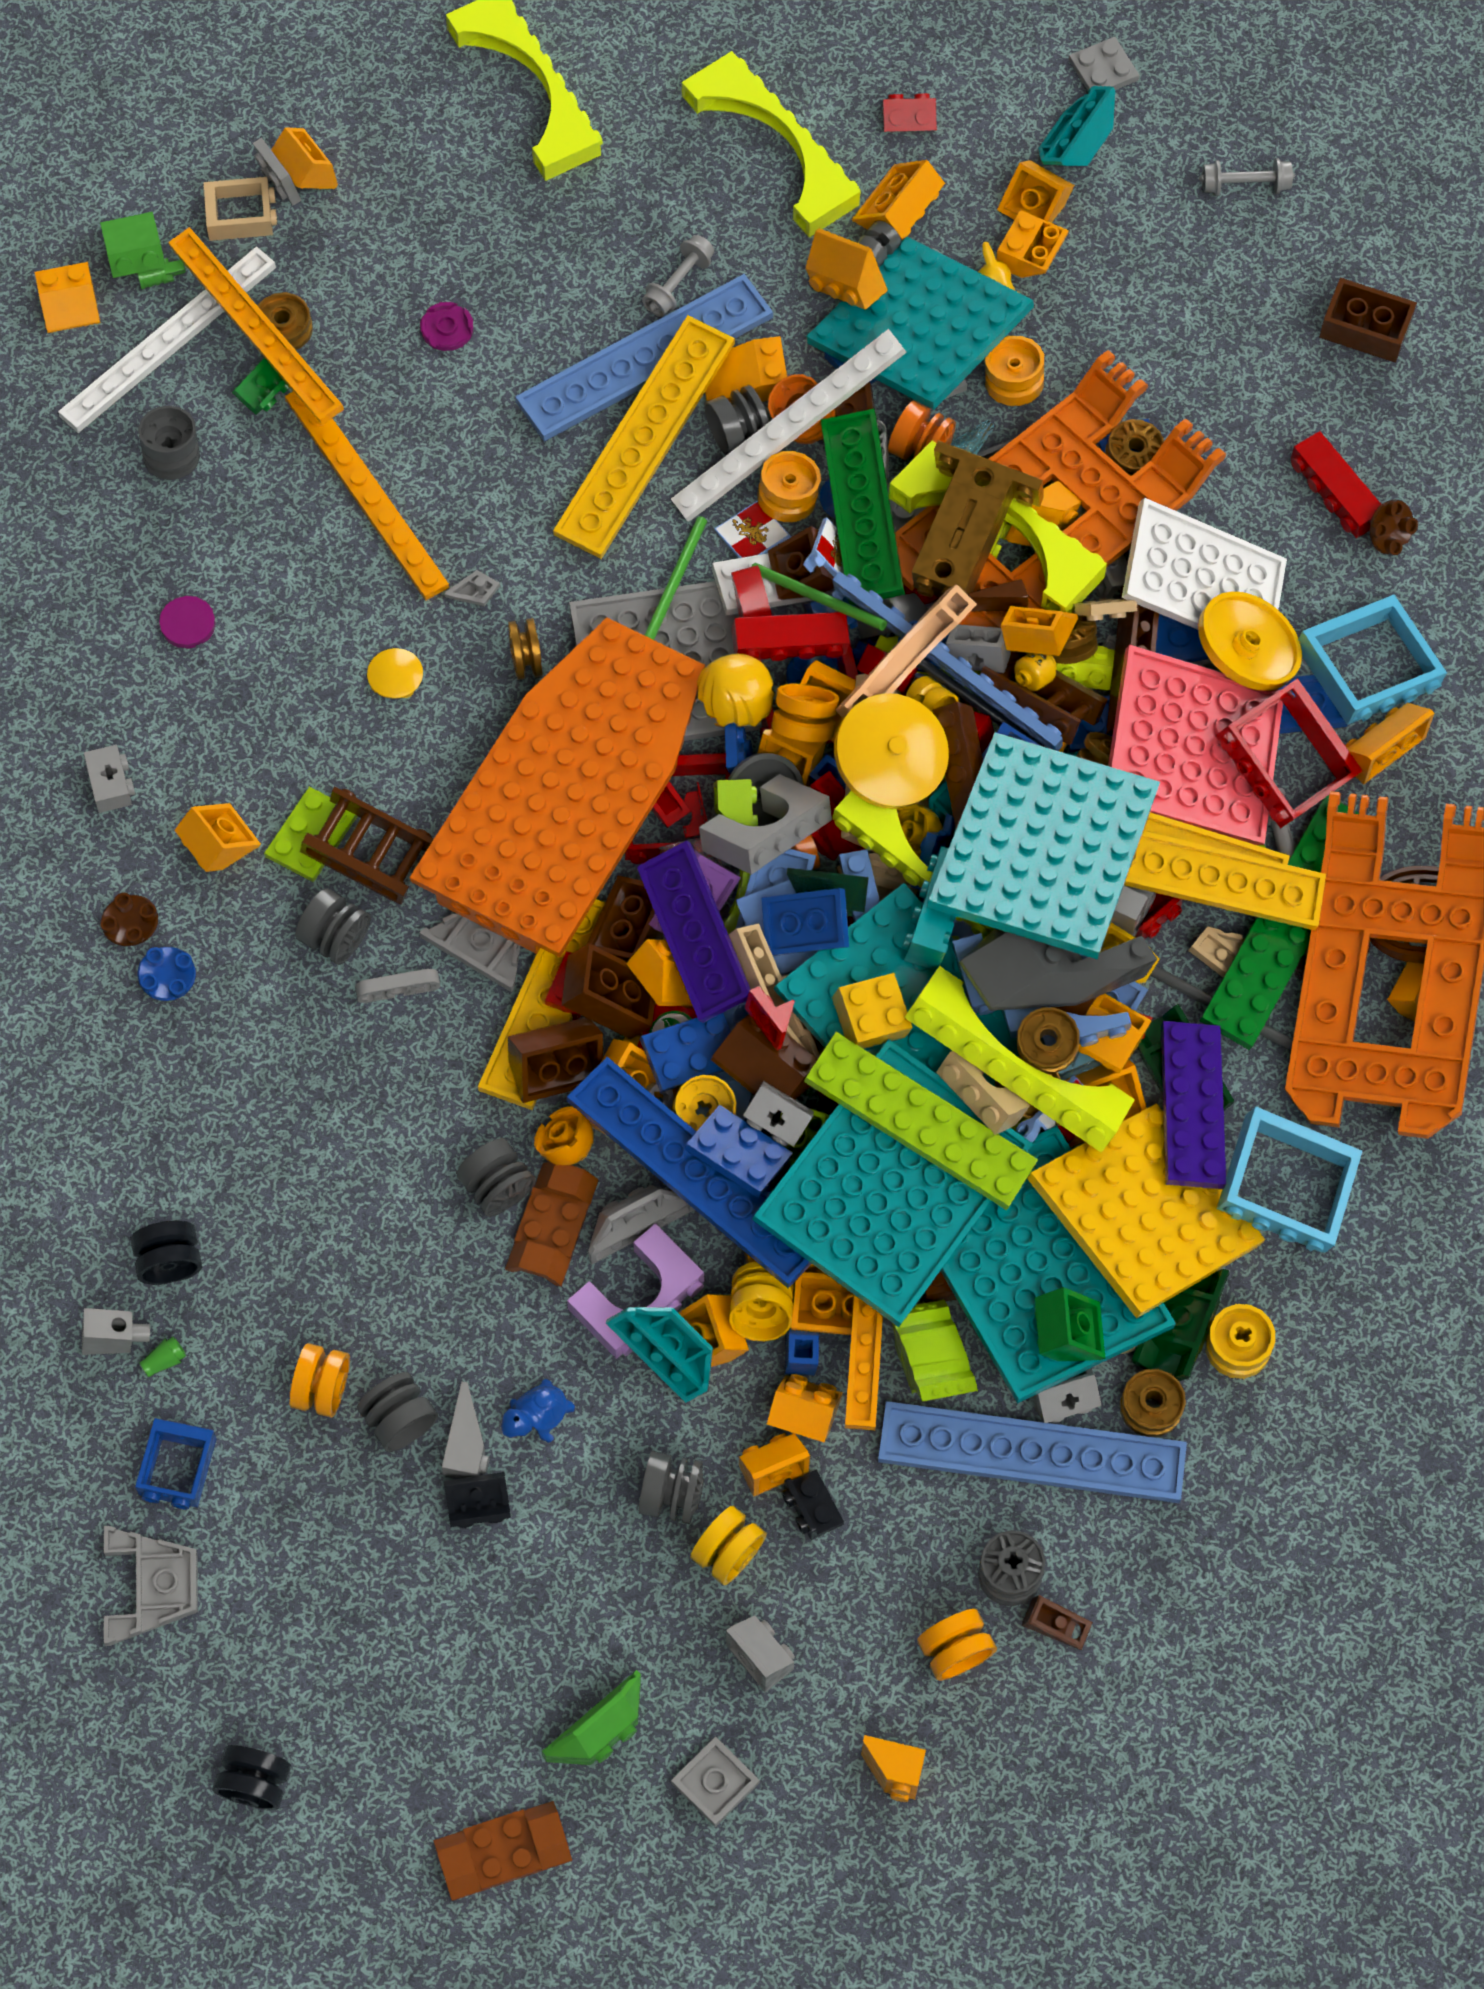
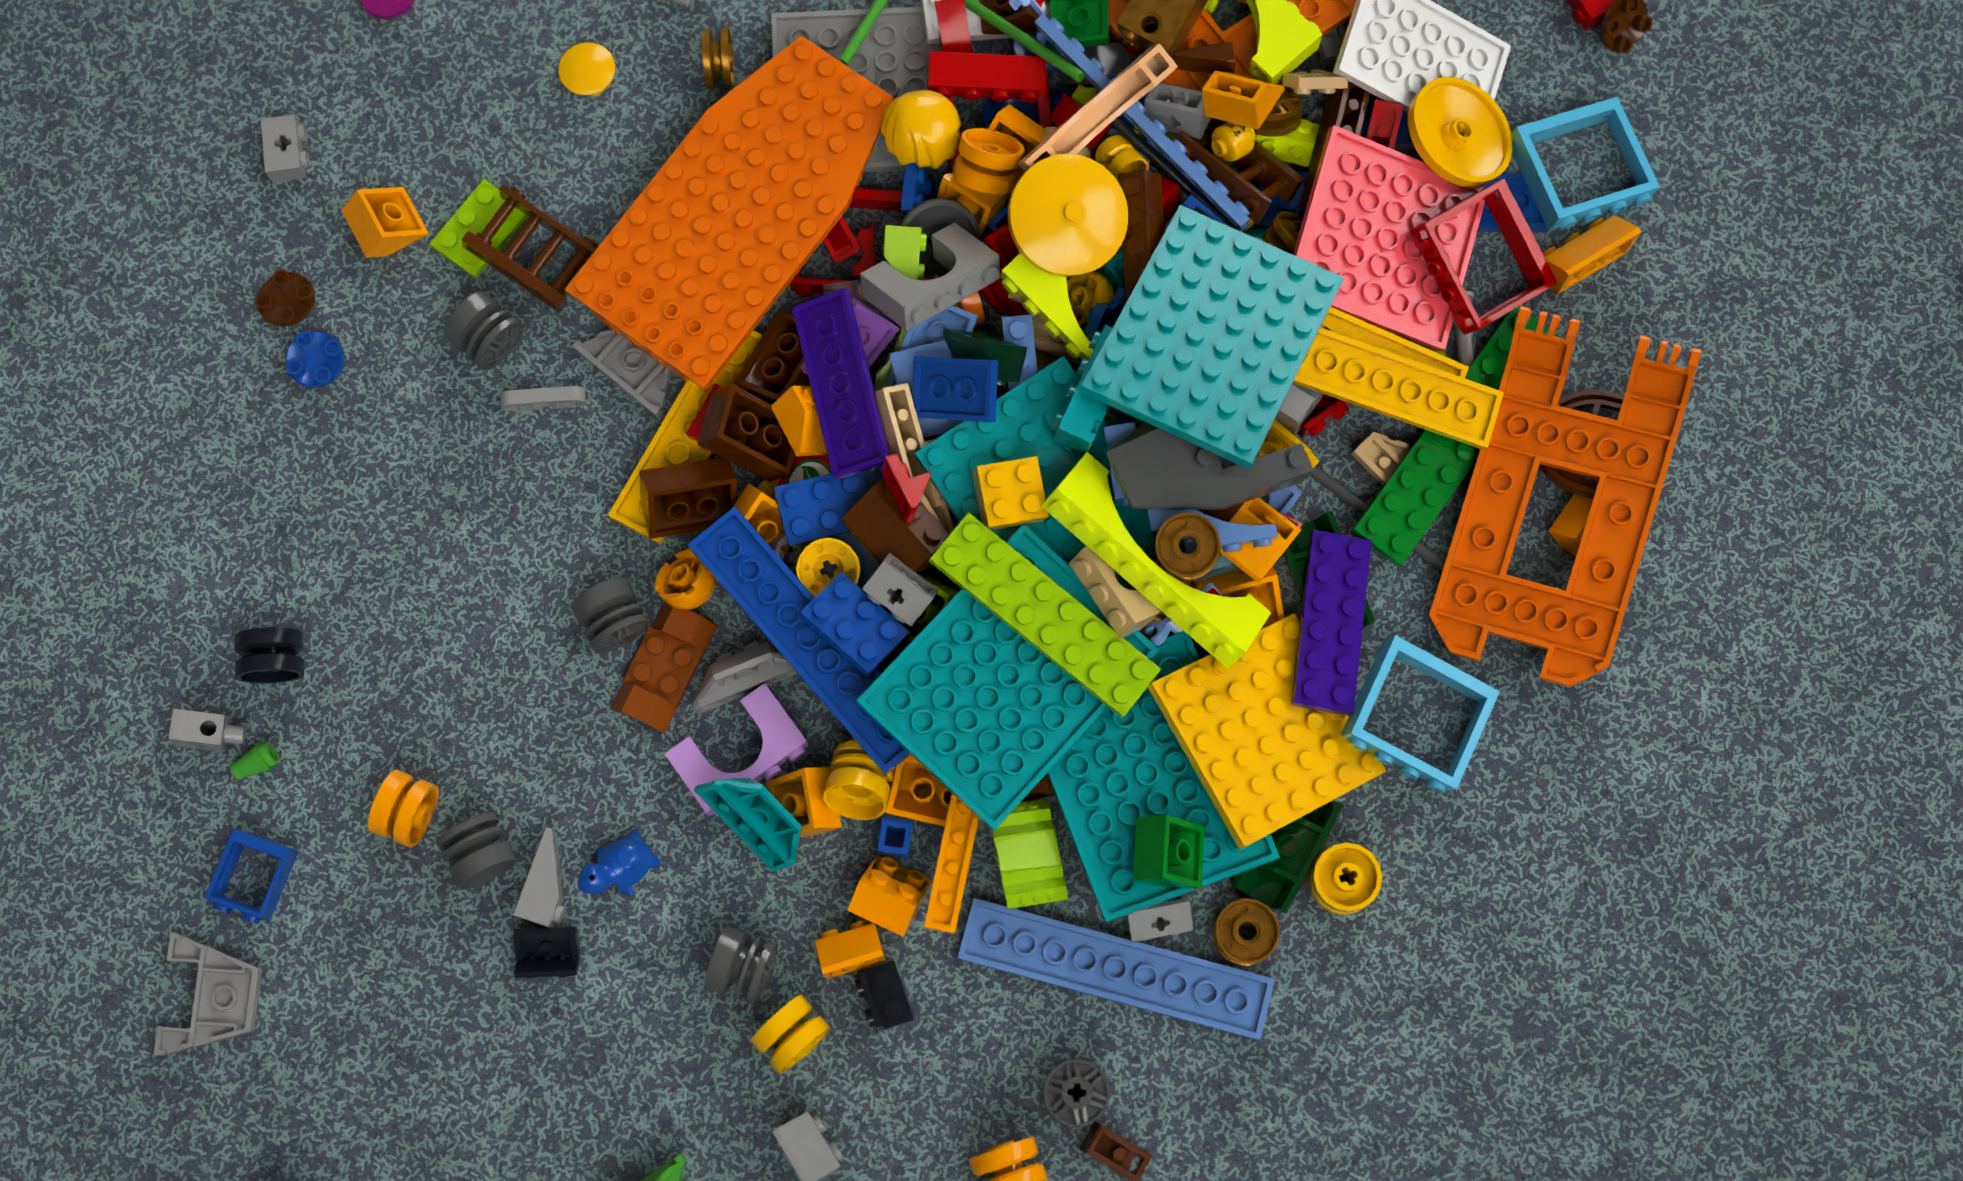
camera: 10 degrees right, 10 degrees up
(1177, 639) = (1384, 123): none -> red slope

